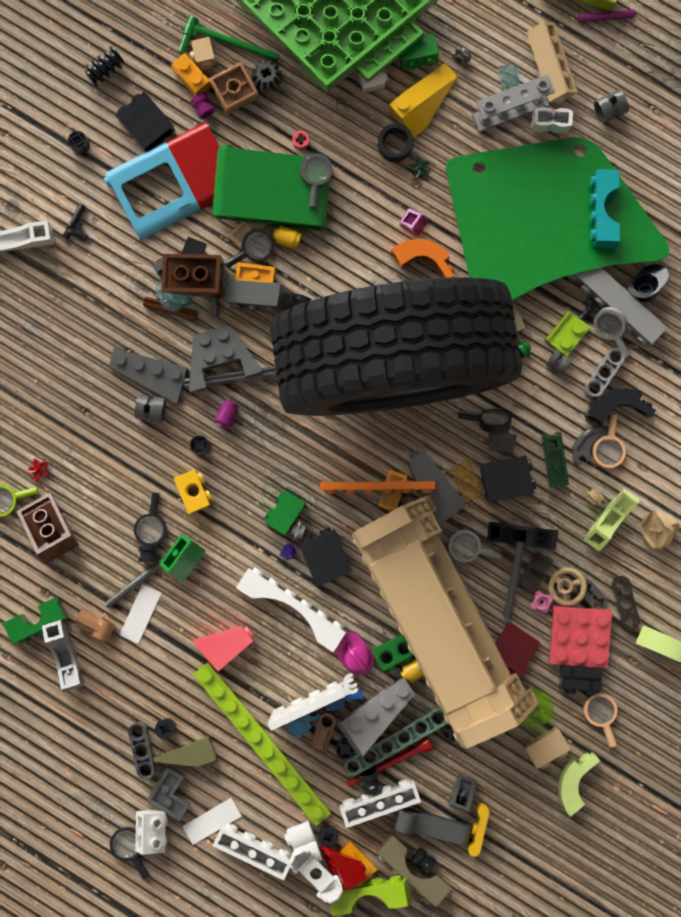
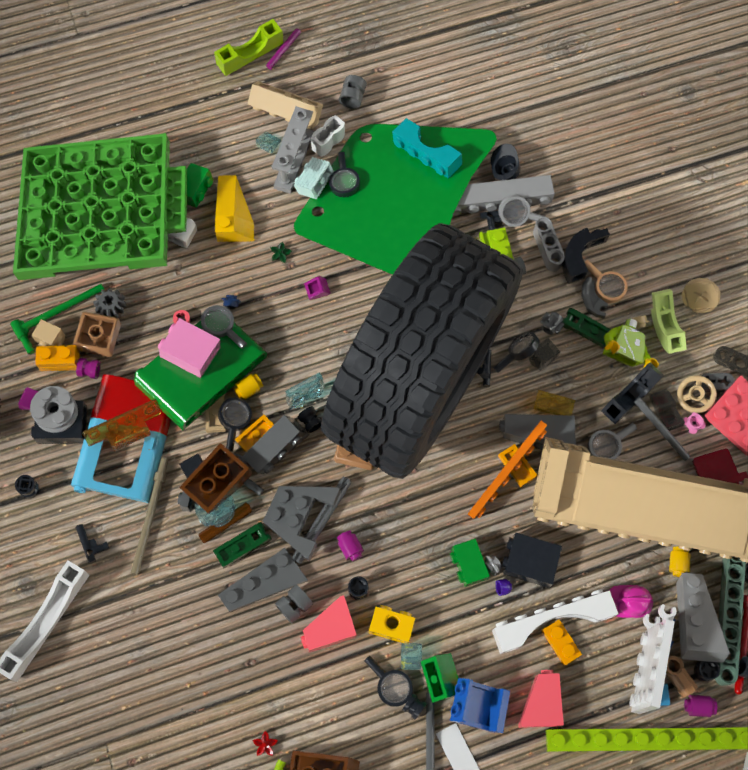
camera: 55 degrees left, 15 degrees down
(142, 83) = (26, 398): none -> magenta slope
(142, 99) = (51, 397): none -> light grey wheel
(155, 448) = (329, 627): none -> coral slope
(163, 334) = (241, 545): none -> dark green plate
(164, 232) = (159, 478): none -> dark tan bar
(176, 175) = (124, 428): none -> clear orange bracket
(181, 523) = (411, 656): none -> clear light blue slope
(183, 600) = (480, 706): none -> blue panel
(274, 167) = (189, 347): none -> bright pink brick
(281, 626) = (561, 642): none -> light orange plate
(311, 281) = (302, 392): none -> clear light blue plate
(314, 762) = (700, 705): none -> magenta brick
(345, 165) = (231, 301): none -> dark blue plate
(392, 647) = (647, 564): green brick -> none
(398, 128) = (242, 241): black tyre -> none
(423, 250) = (347, 296): orange arch -> none
(450, 408) = (485, 370): none -> black hose
(462, 56) = (225, 160): dark grey plate -> none
(504, 140) = (313, 178): none -> light aqua brick
(507, 479) = (576, 373): black brick -> none
(523, 166) = (345, 180): none -> piece
(534, 428) = (552, 323): none -> dark grey gear
(563, 502) = (627, 345): none -> lime torso

